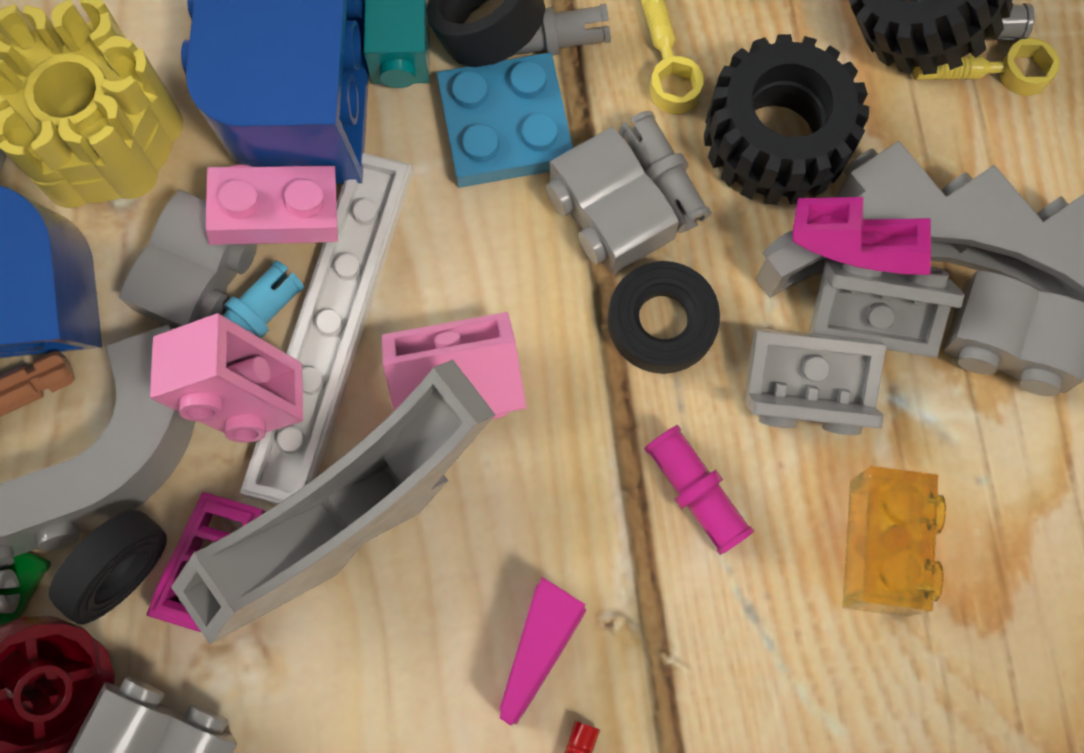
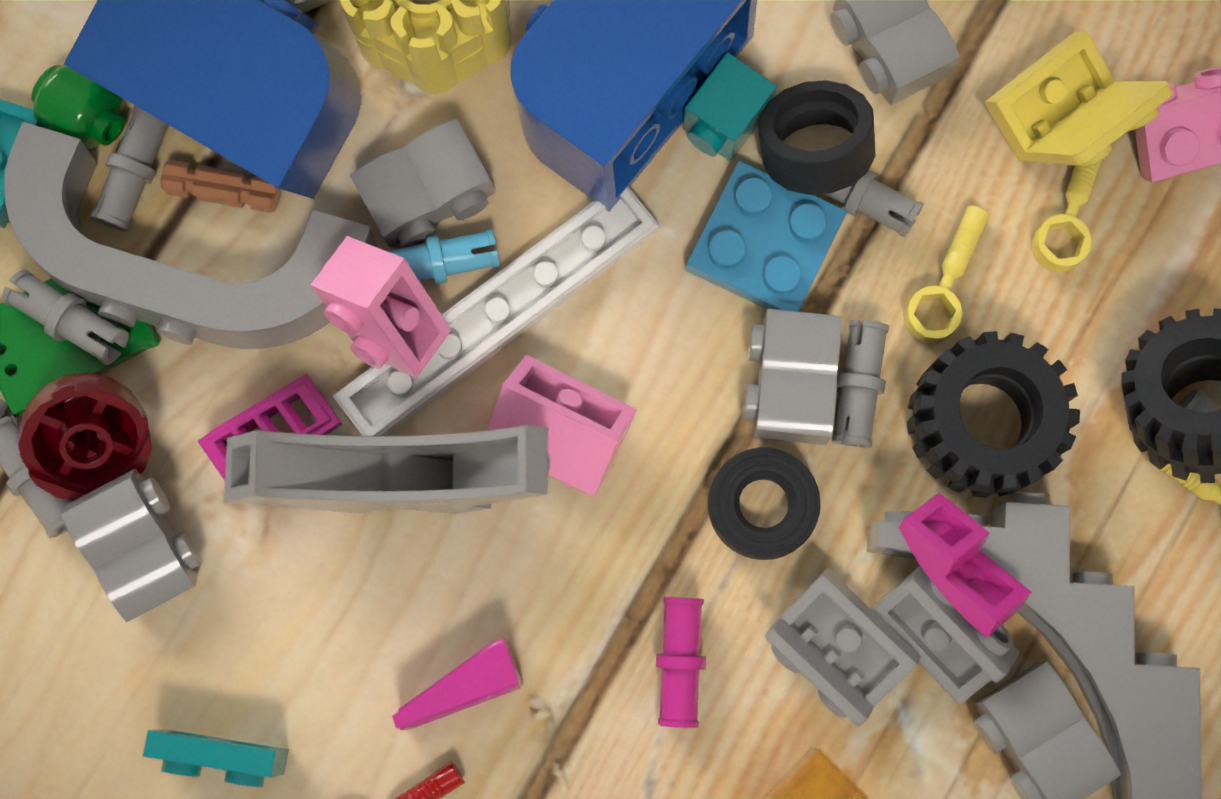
camera: 40 degrees right, 5 degrees up
(107, 566) = (196, 383): black tyre -> none
(271, 205) = (518, 185): bright pink bracket -> none

